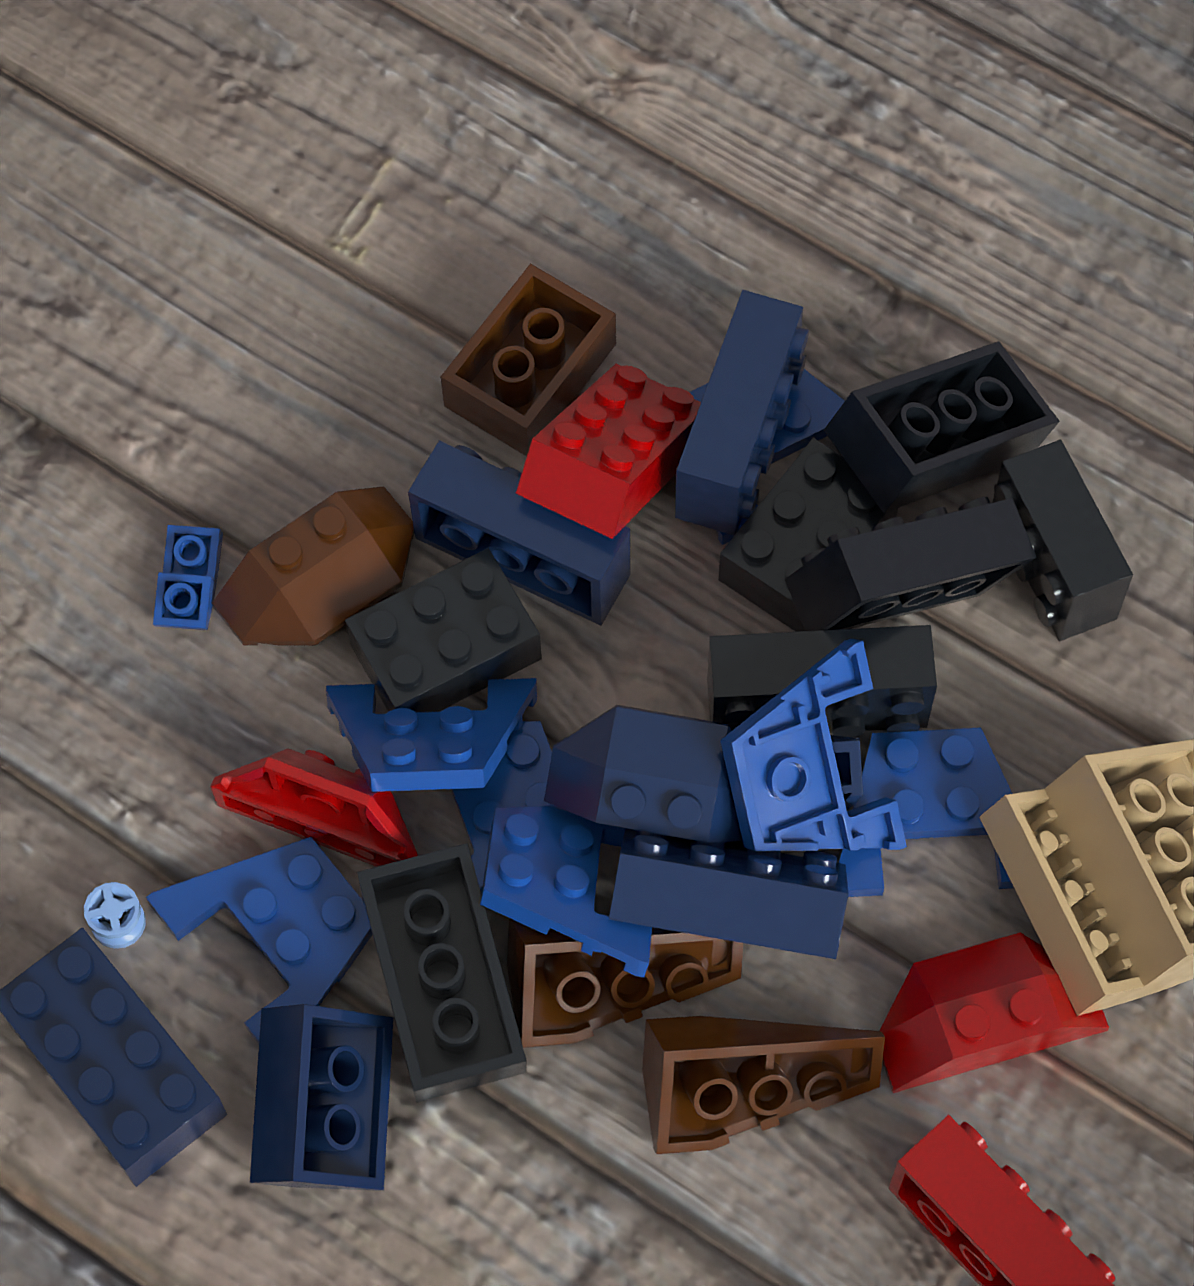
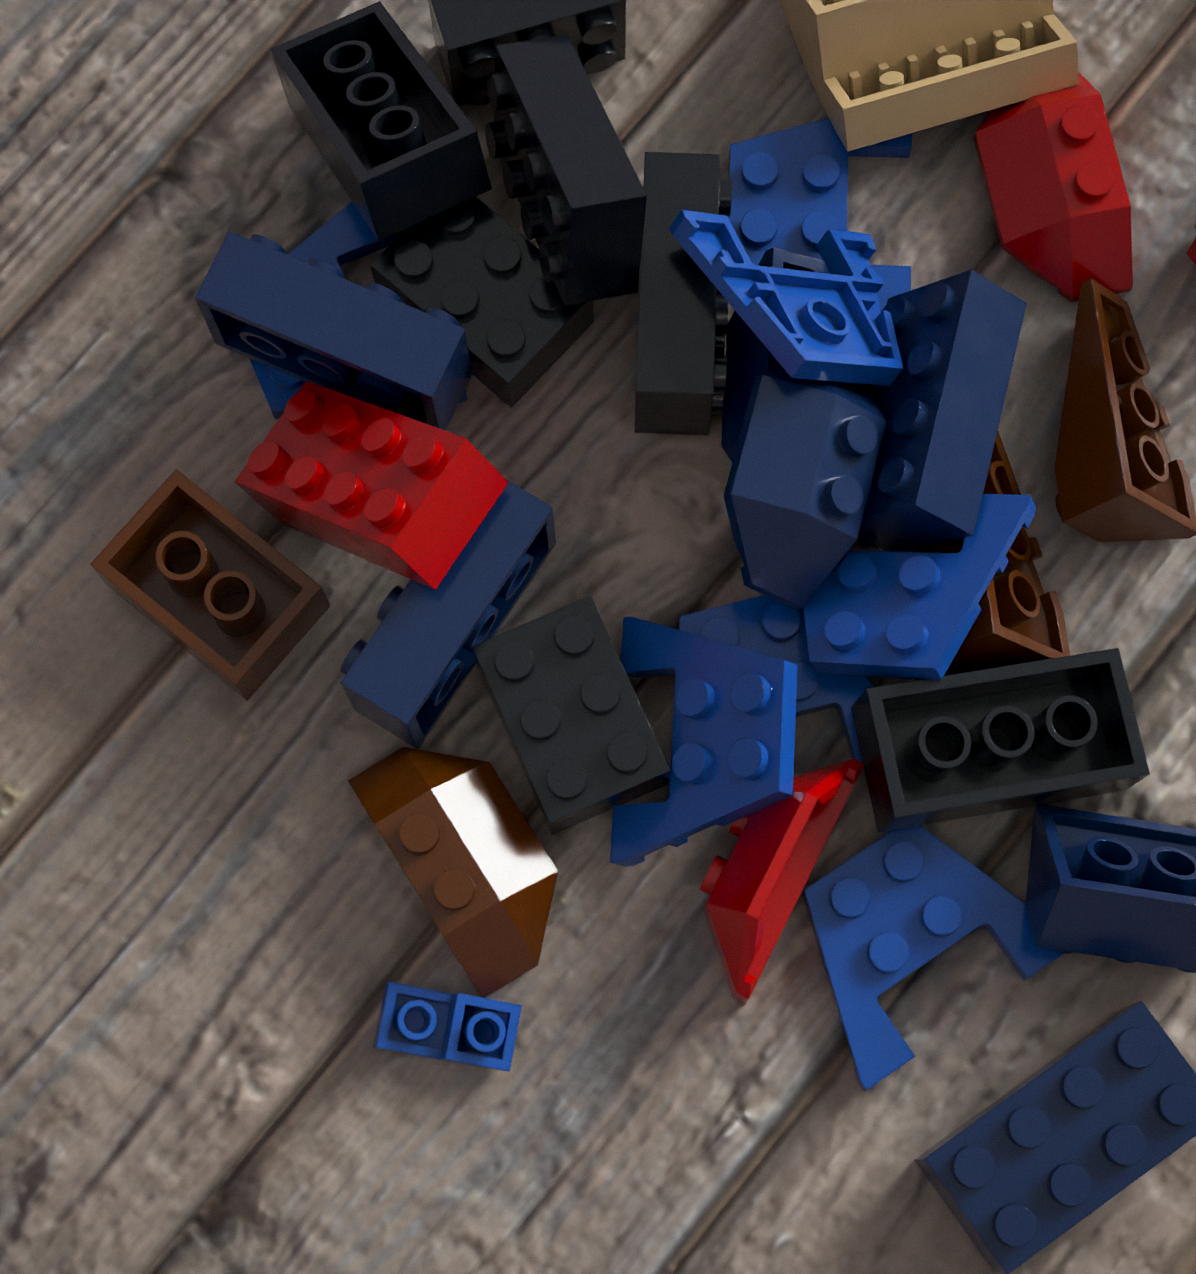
camera: 85 degrees left, 10 degrees up
(108, 904) = (898, 1125): light blue wheel -> none

